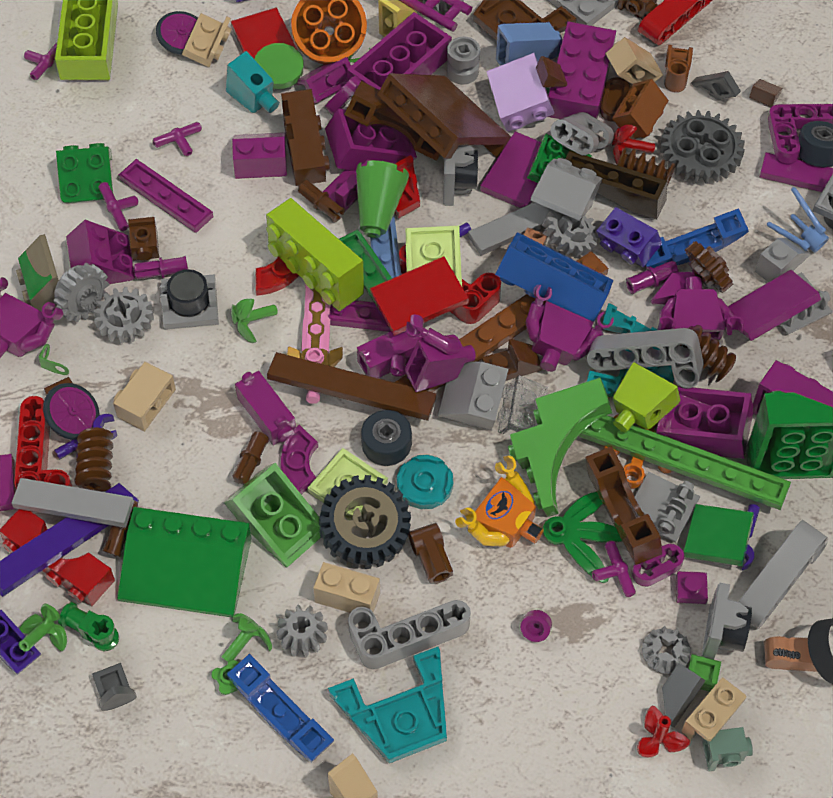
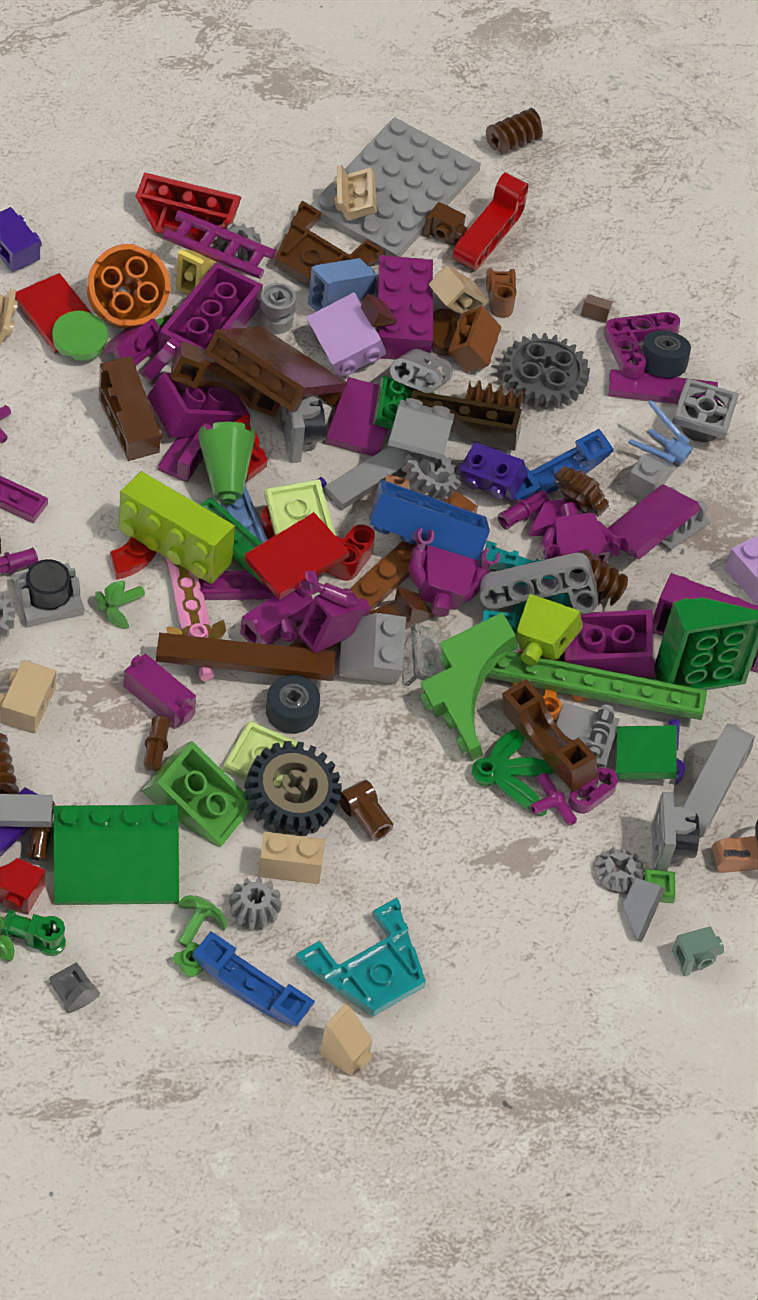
camera: 20 degrees left, 5 degrees down
(250, 84) = (56, 359): teal torso -> none
(259, 155) = (83, 432): magenta slope -> none
(296, 458) = (203, 730): magenta tile -> none
(321, 200) = (161, 472): reddish brown axle -> none
(410, 628) = (399, 872): light grey beam -> none
(425, 482) = (342, 741): teal tile -> none
(504, 512) = (431, 758): torso -> none
(536, 625) = (488, 864): magenta tile -> none
(622, 140) = (463, 372): red plant -> none
(658, 726) = (629, 943): red plant -> none
(691, 587) = (630, 807): magenta plate -> none
(714, 711) = (679, 917): tan bracket -> none
(719, 84) = (549, 305): dark grey tile -> none

